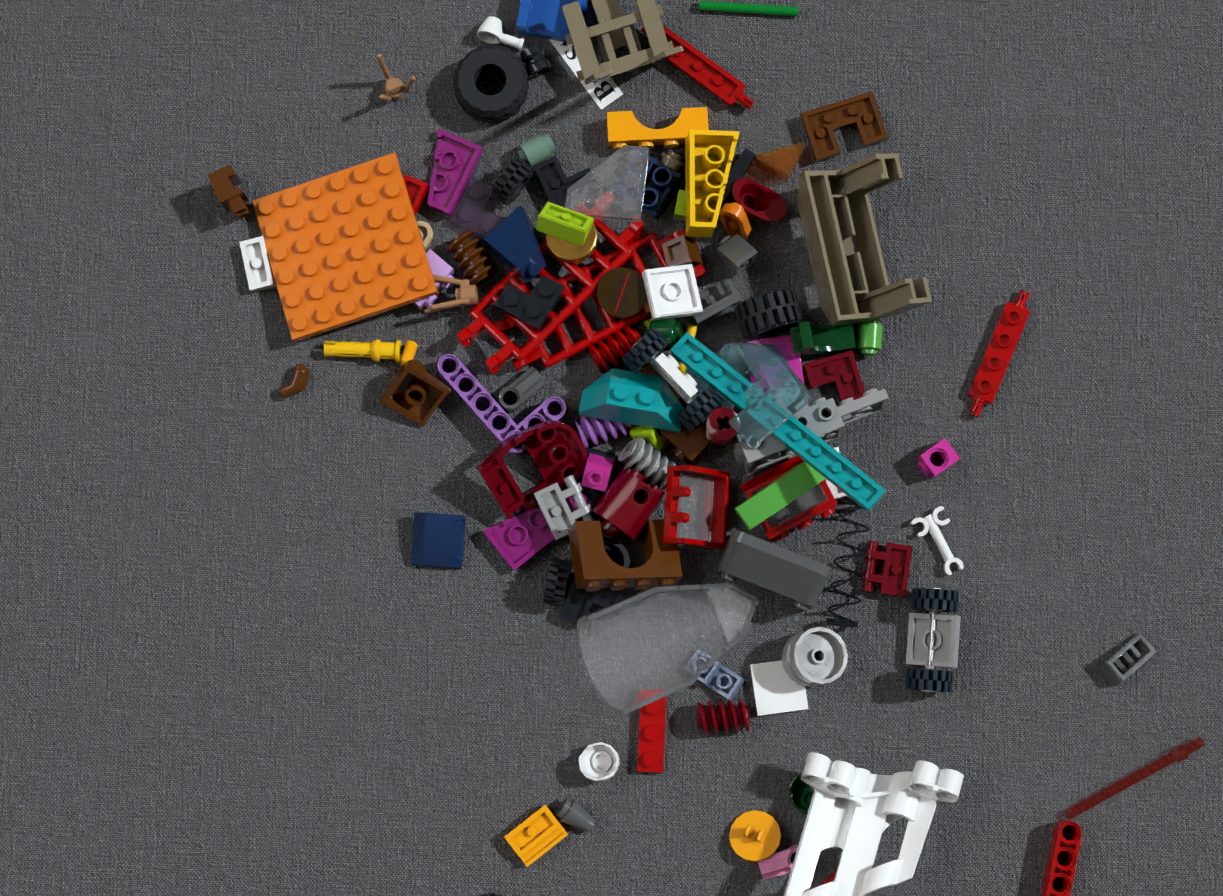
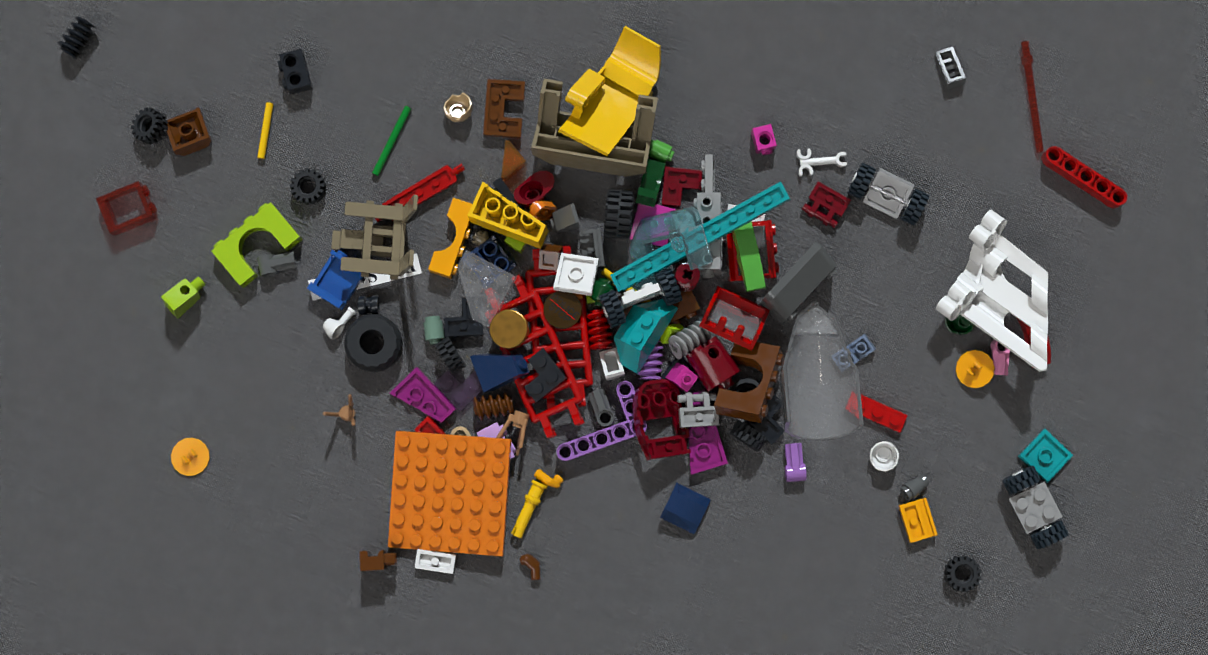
camera: 65 degrees left, 0 degrees up
(414, 392) = (574, 484): reddish brown slope -> none
(543, 655) = (795, 468): none -> medium lavender piece
(564, 223) = (497, 330): lime slope -> none
(577, 380) = (611, 364): none -> white slope
(723, 716) = (884, 360): dark red piece -> none
(775, 690) = (878, 311): white tile -> none
(814, 657) = (869, 278): light grey wheel -> none
(821, 70) = (458, 107): none -> tan hair
(847, 622) = (854, 245): black piece -> none
(905, 241) = (608, 99): none -> yellow beam
(999, 353) = (706, 67): red plate -> none

